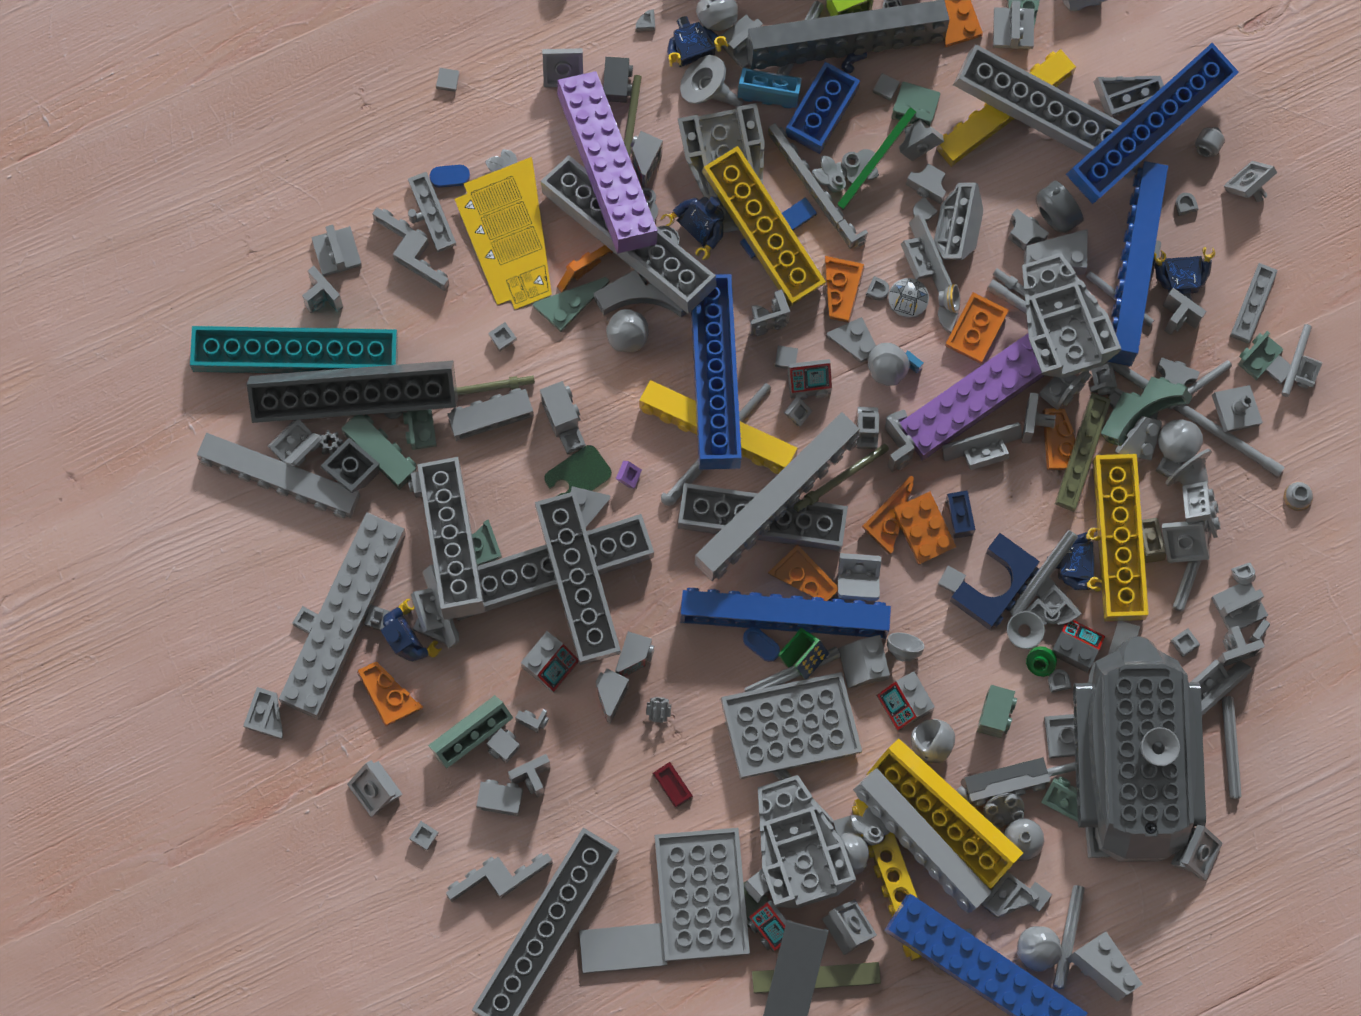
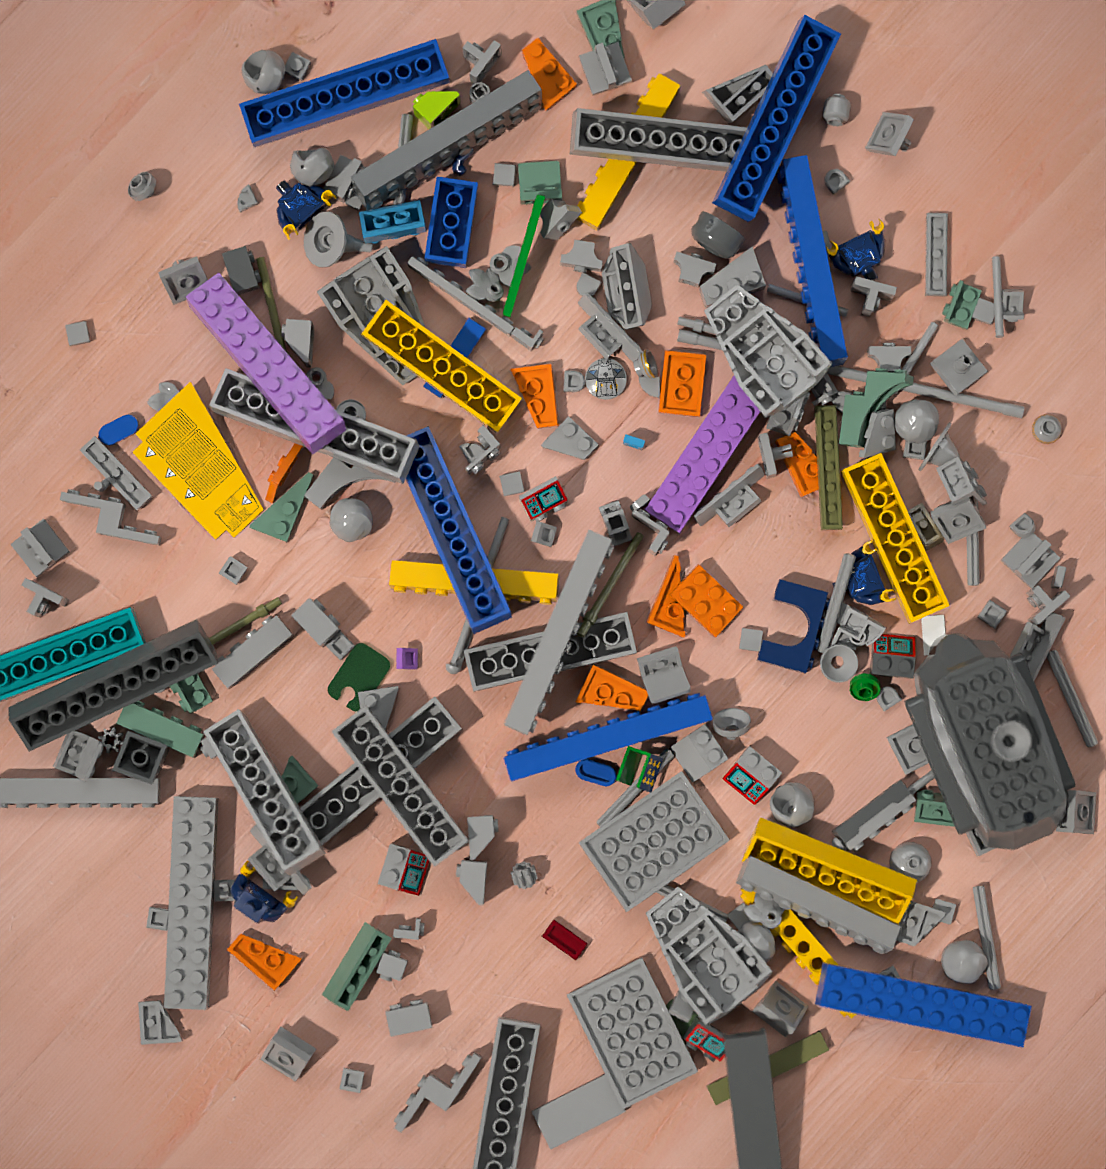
camera: 20 degrees left, 10 degrees up
(528, 773) = (434, 993): light grey bracket -> none
(701, 220) = (380, 382): dark blue torso -> none
(888, 364) = (612, 455): light grey piece -> none
(961, 514) = (736, 574): dark blue panel -> none
(996, 710) = (841, 753): sand green brick -> none
(1004, 809) = (882, 844): light grey dish -> none
(1106, 966) = (1031, 953): light grey wedge -> none

